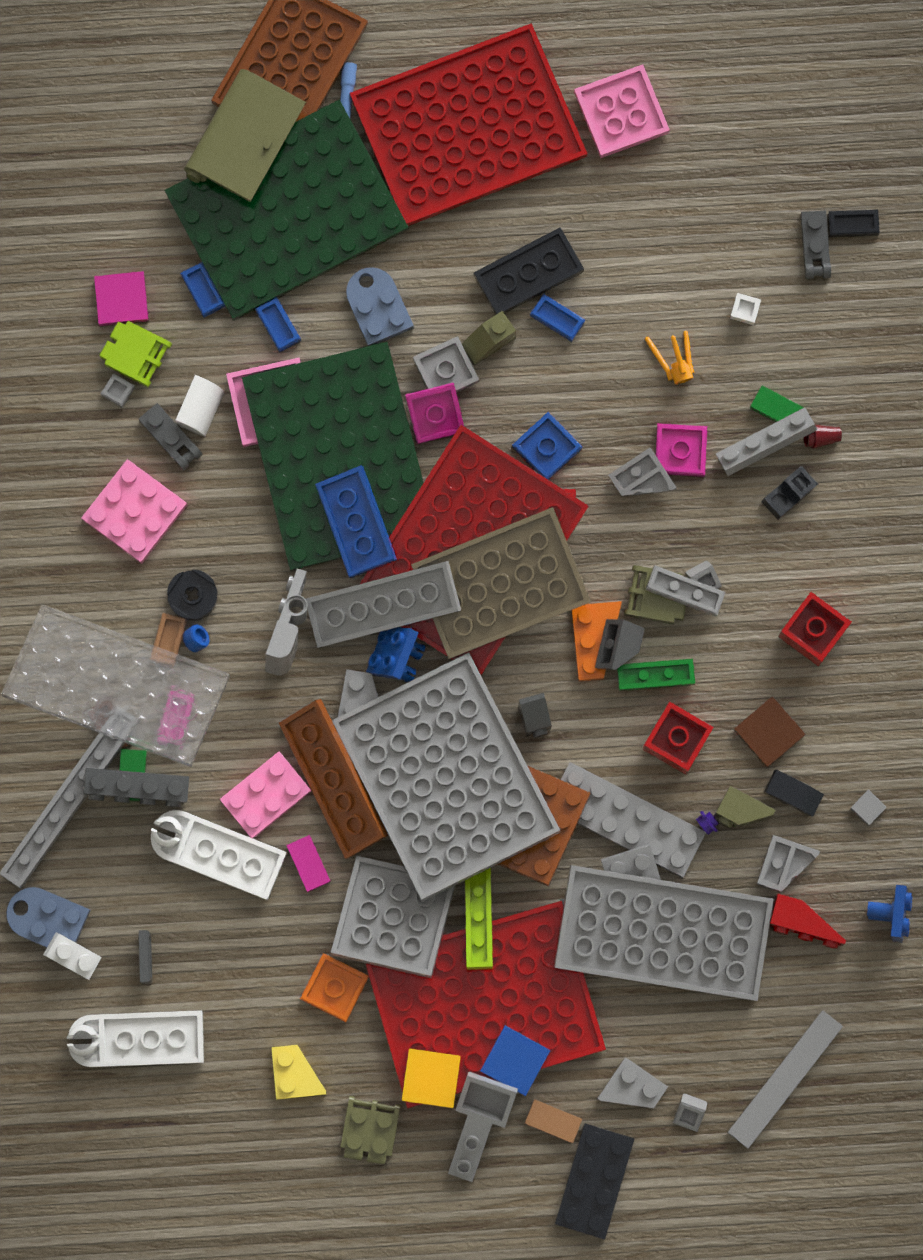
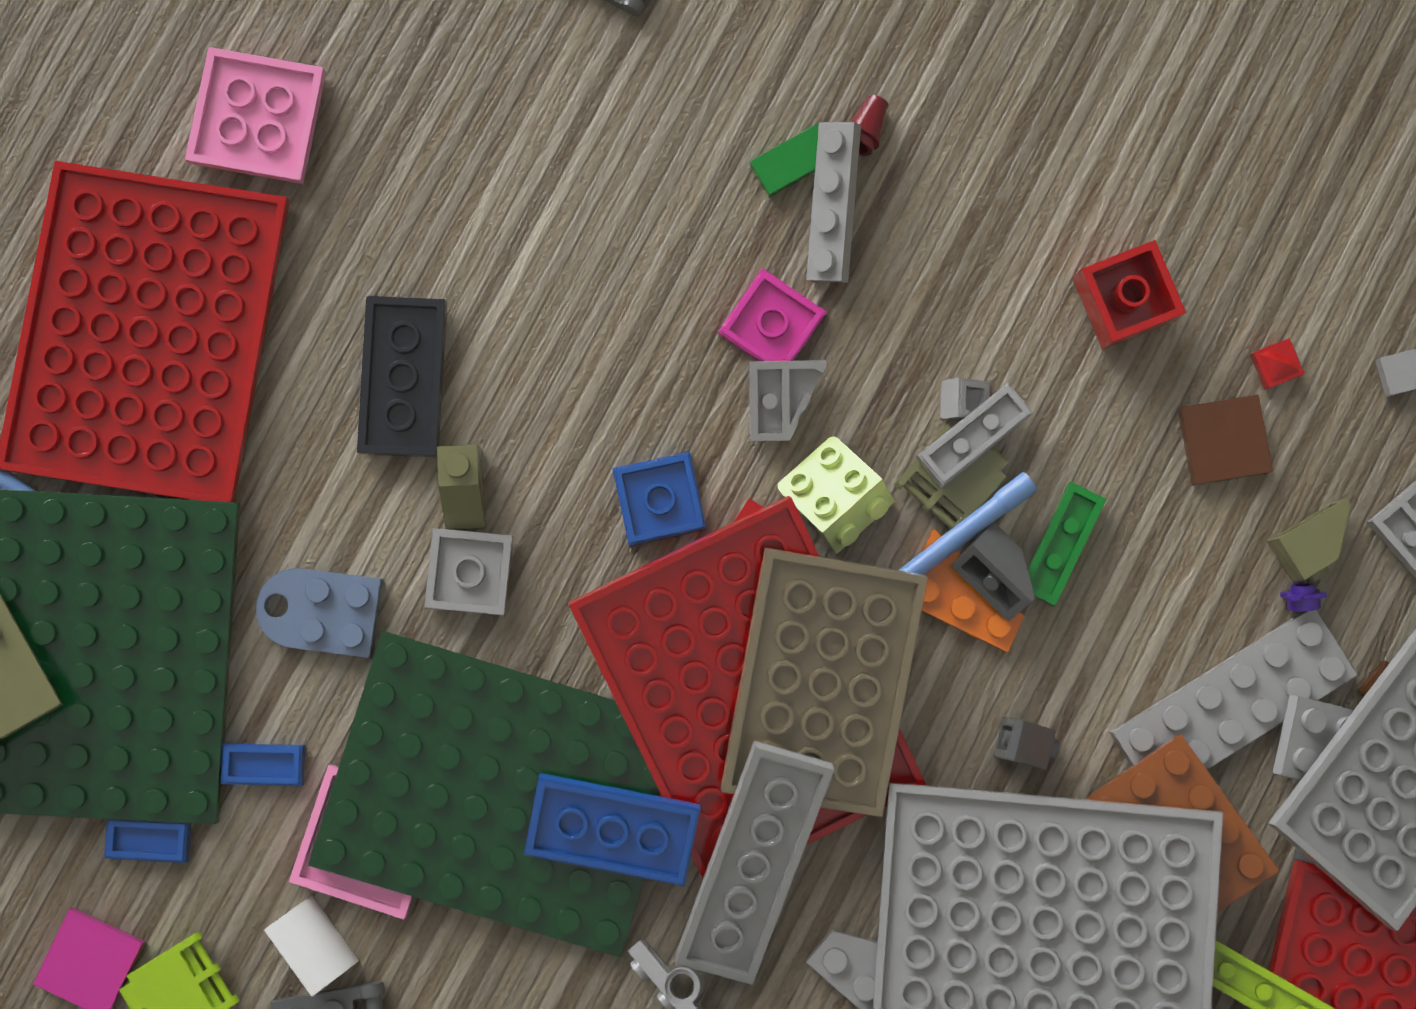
camera: 60 degrees left, 5 degrees up
(393, 652) = (828, 889): blue plate -> none
(434, 412) = (521, 624): dark pink tile -> none
(557, 317) = (489, 376): blue tile -> none
(607, 538) = (837, 493): none -> yellowish green bracket
(656, 625) = (1002, 502): none -> medium blue piece
(677, 738) = (1171, 569): red brick -> none
(682, 370) = (665, 254): light orange plant -> none
(745, 309) = (632, 119): white plate -> none
(789, 492) = (917, 215): black slope -> none
(794, 793) = (1327, 458): black slope -> none
(830, 736) = (1277, 364): none -> red tile

